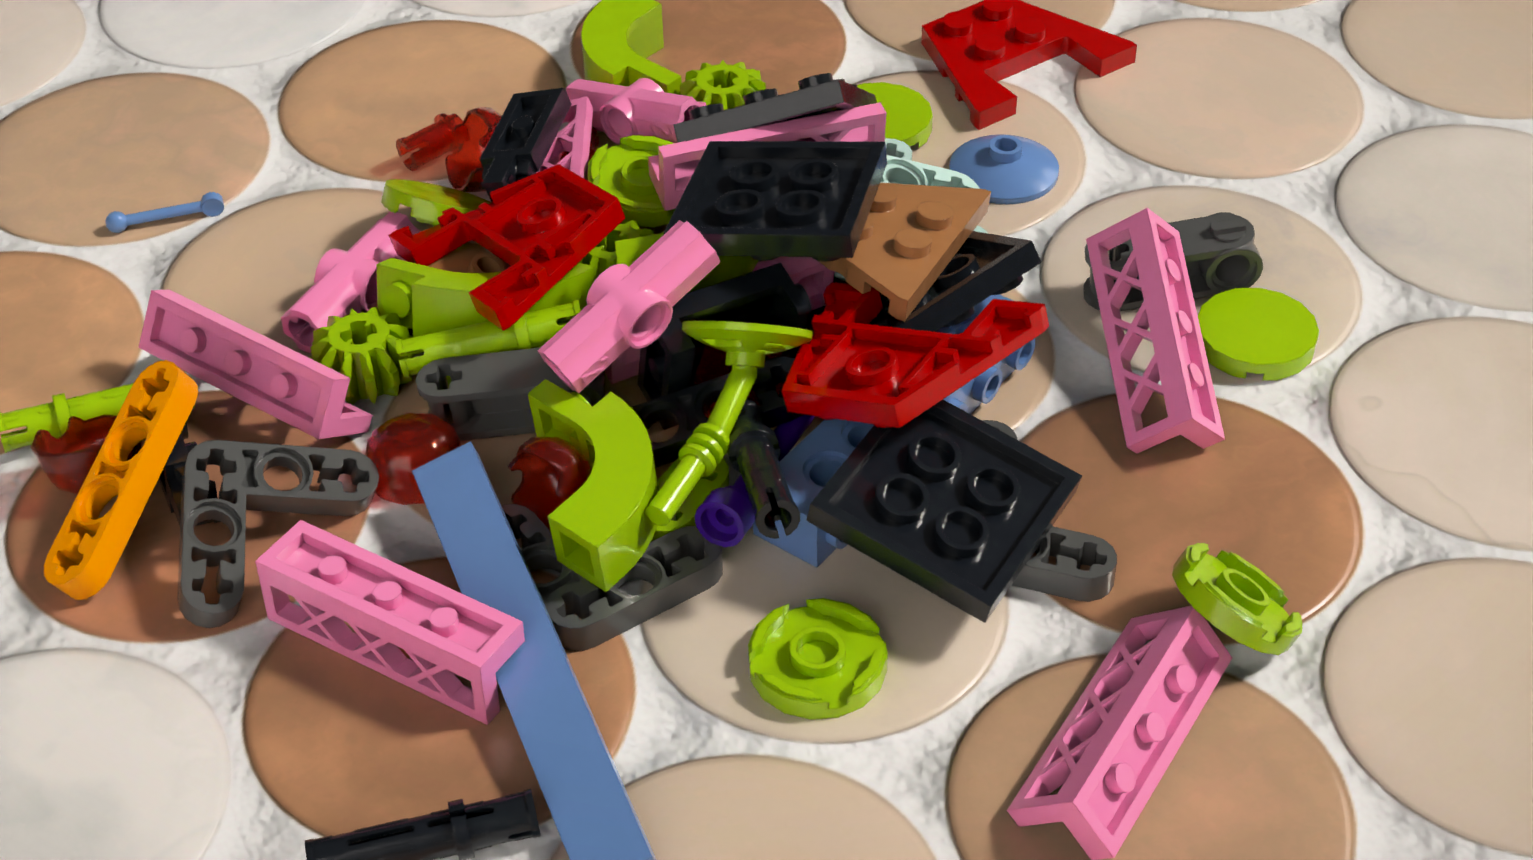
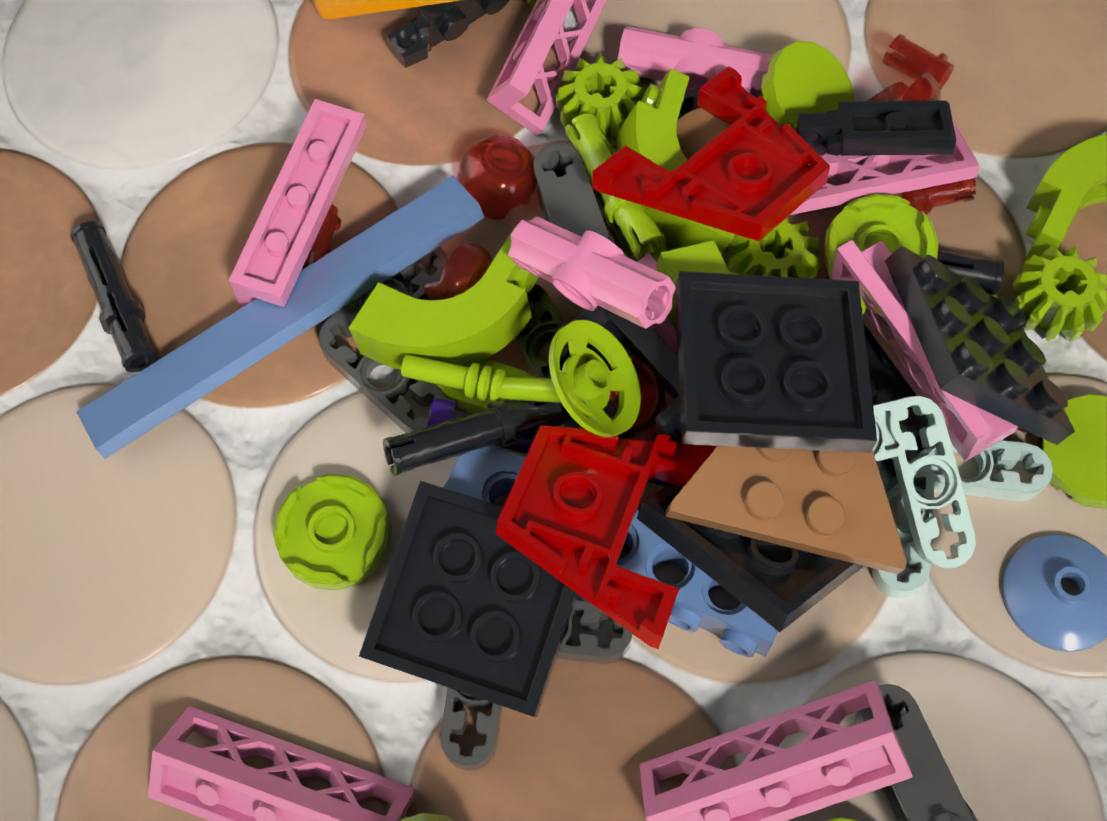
camera: 80 degrees right, 25 degrees up
(246, 489) = (413, 71): dark grey beam -> none
(634, 109) = (994, 216): bright pink piece -> none

